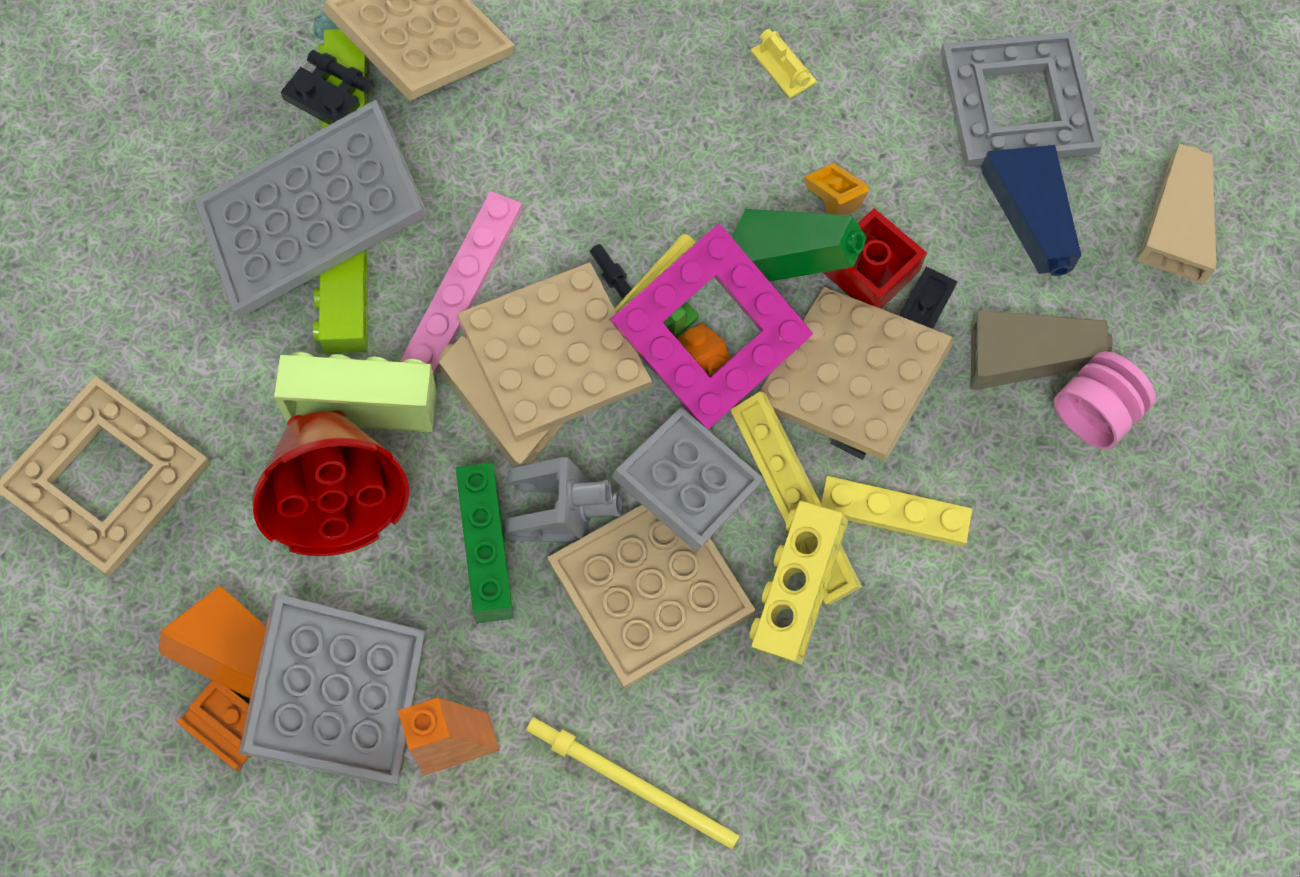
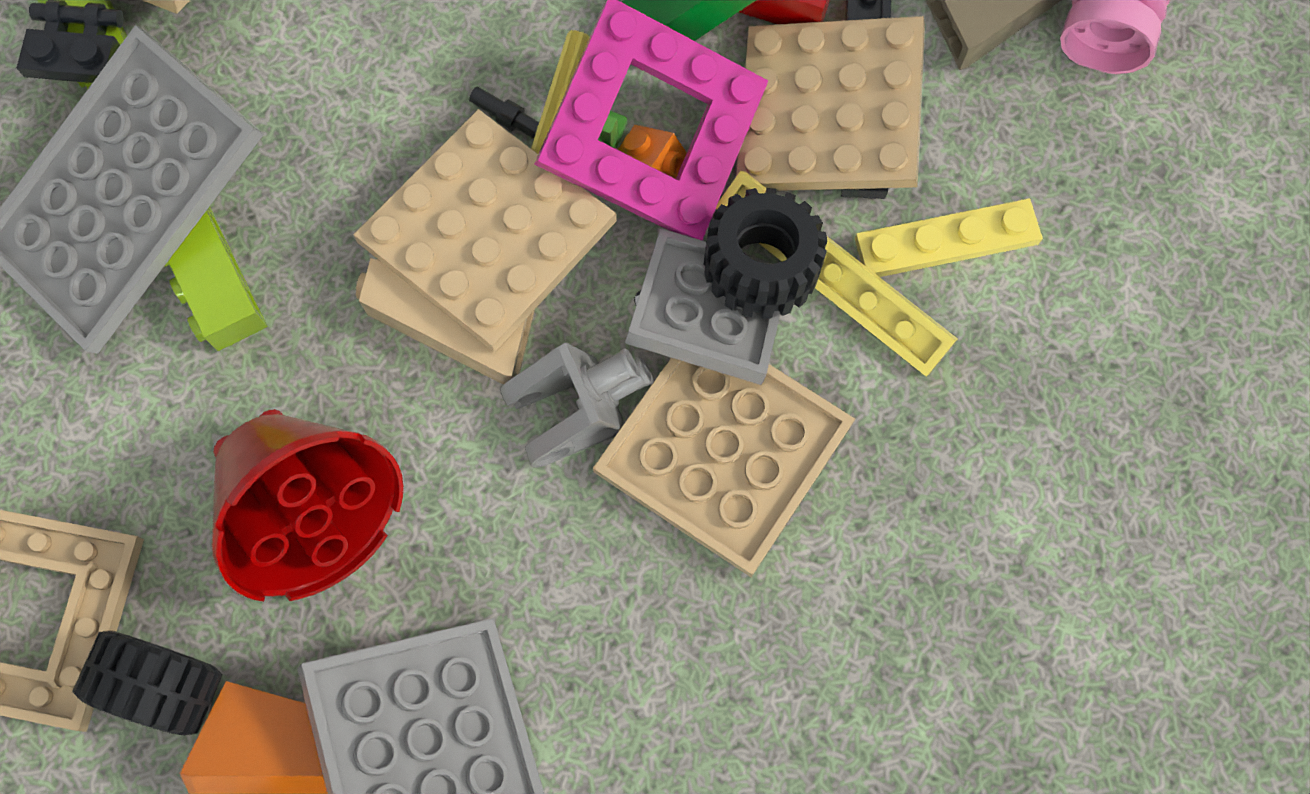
camera: 20 degrees left, 5 degrees up
(168, 560) = (147, 683): none -> black tyre
(367, 391) = (291, 372): yellowish green piece -> none
(446, 734) = (583, 731): orange slope -> none
(463, 279) = (339, 205): bright pink plate -> none
(484, 543) = (513, 484): green brick -> none
(565, 744) = (717, 671): light yellow bar -> none
(747, 431) = (769, 221): none -> black tyre
(804, 522) = (890, 289): light yellow brick -> none

